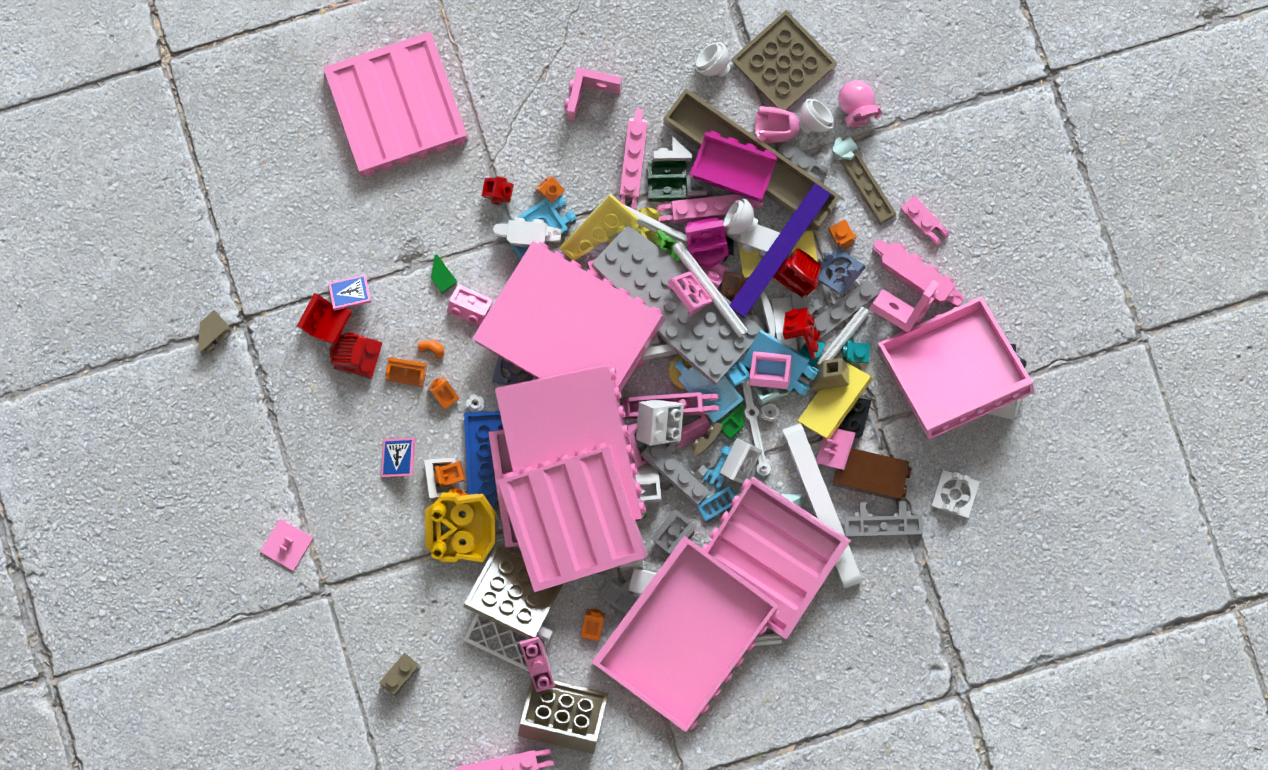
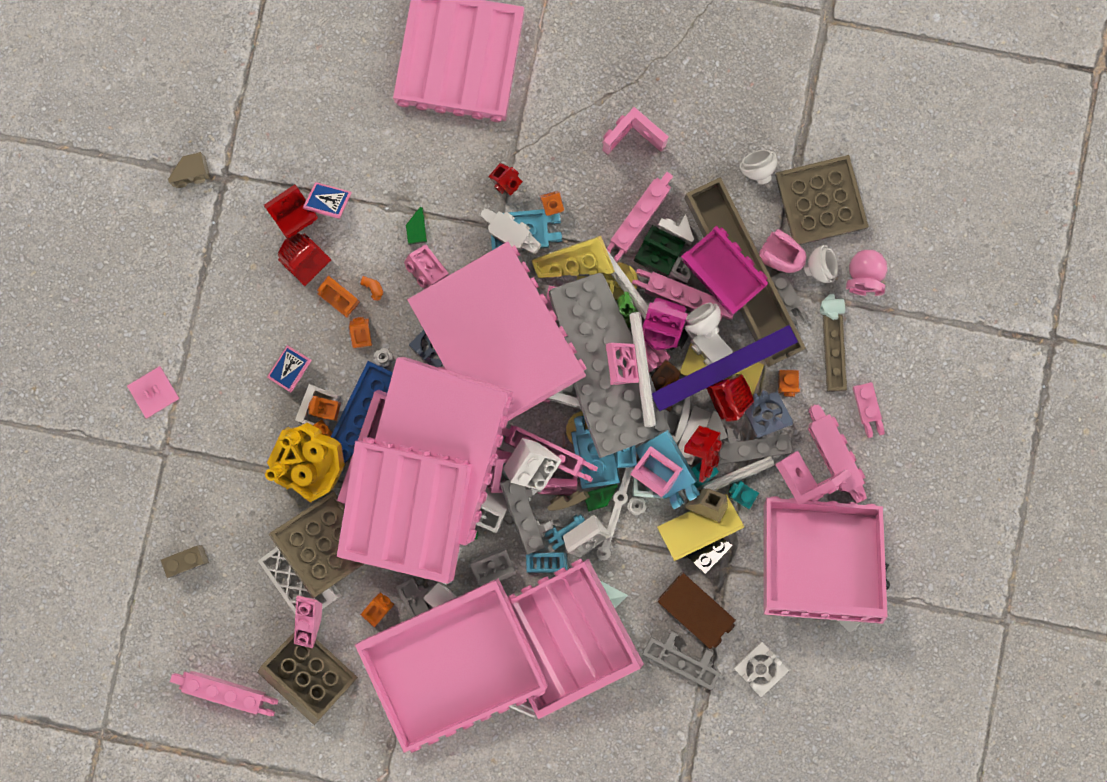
camera: 30 degrees right, 5 degrees up
(819, 498) = (638, 606): white beam -> none
(835, 451) = (676, 573): bright pink piece -> none

